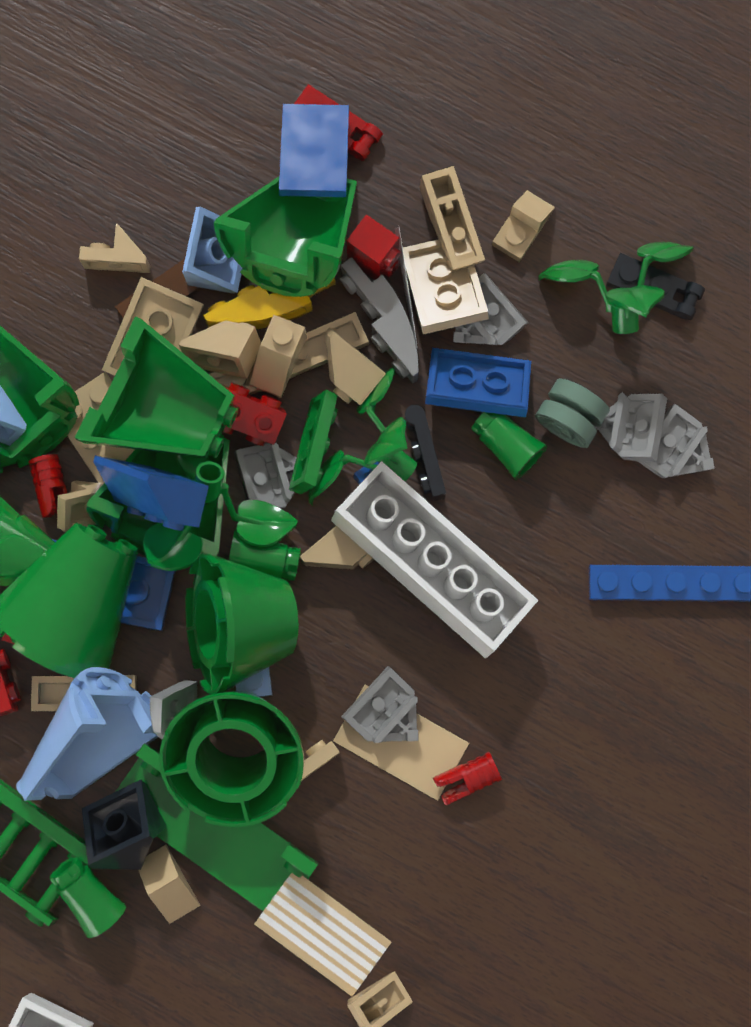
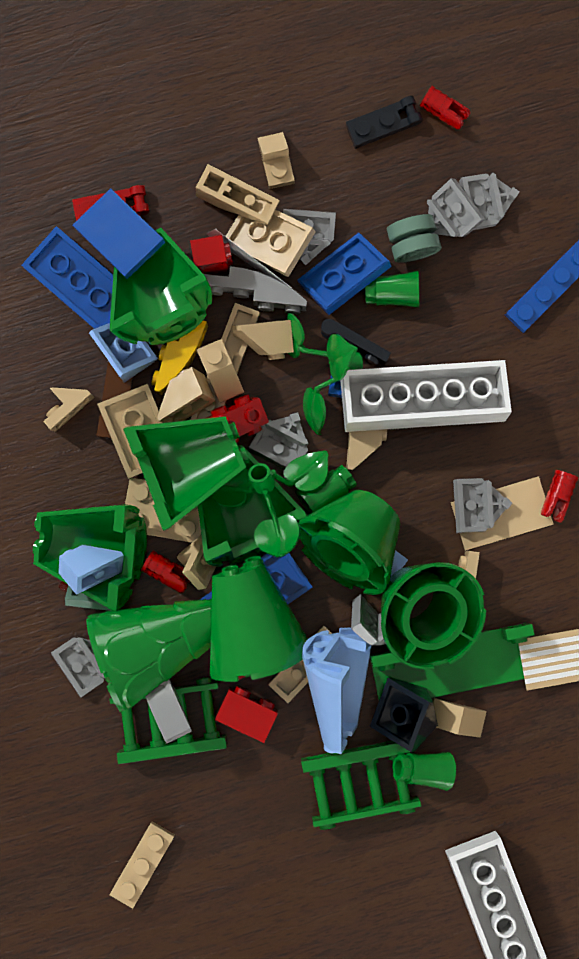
camera: 50 degrees left, 5 degrees up
(154, 492) = (238, 514): blue slope -> none
(238, 147) = (73, 277): none -> blue plate
(314, 442) = (289, 398): green plate -> none
(623, 303) = (382, 148): green plant -> none
(723, 327) = (445, 108): none -> red hinge

